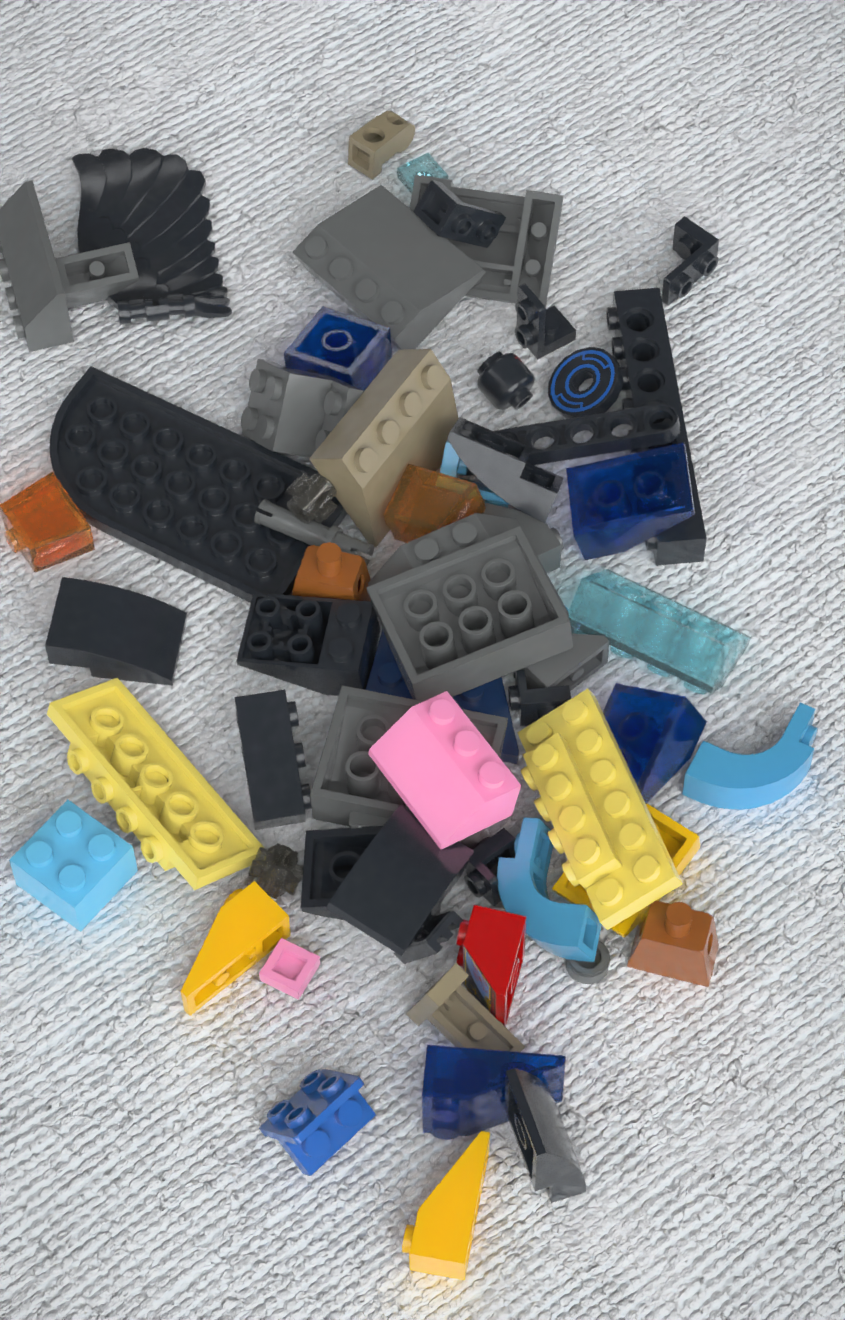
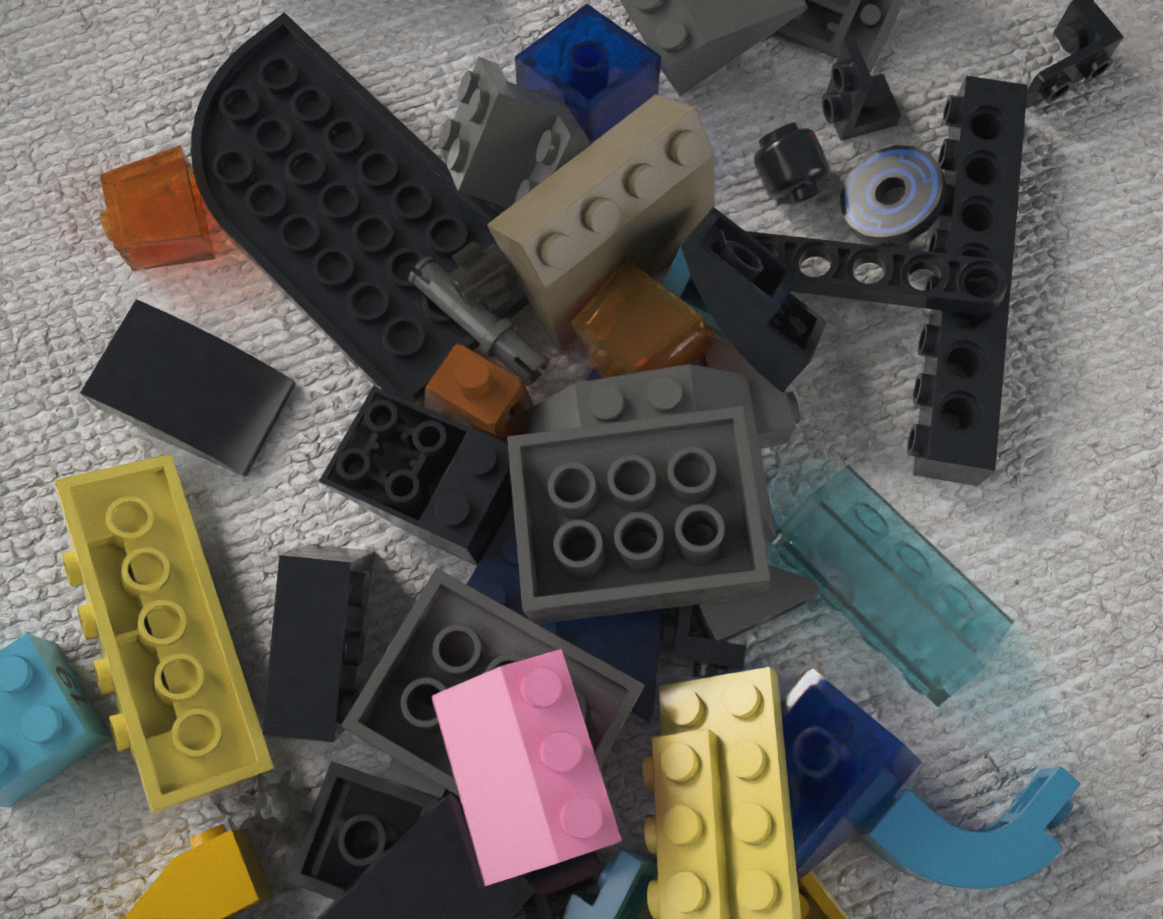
camera: 15 degrees right, 15 degrees up
(628, 499) = (910, 385): clear blue slope -> none

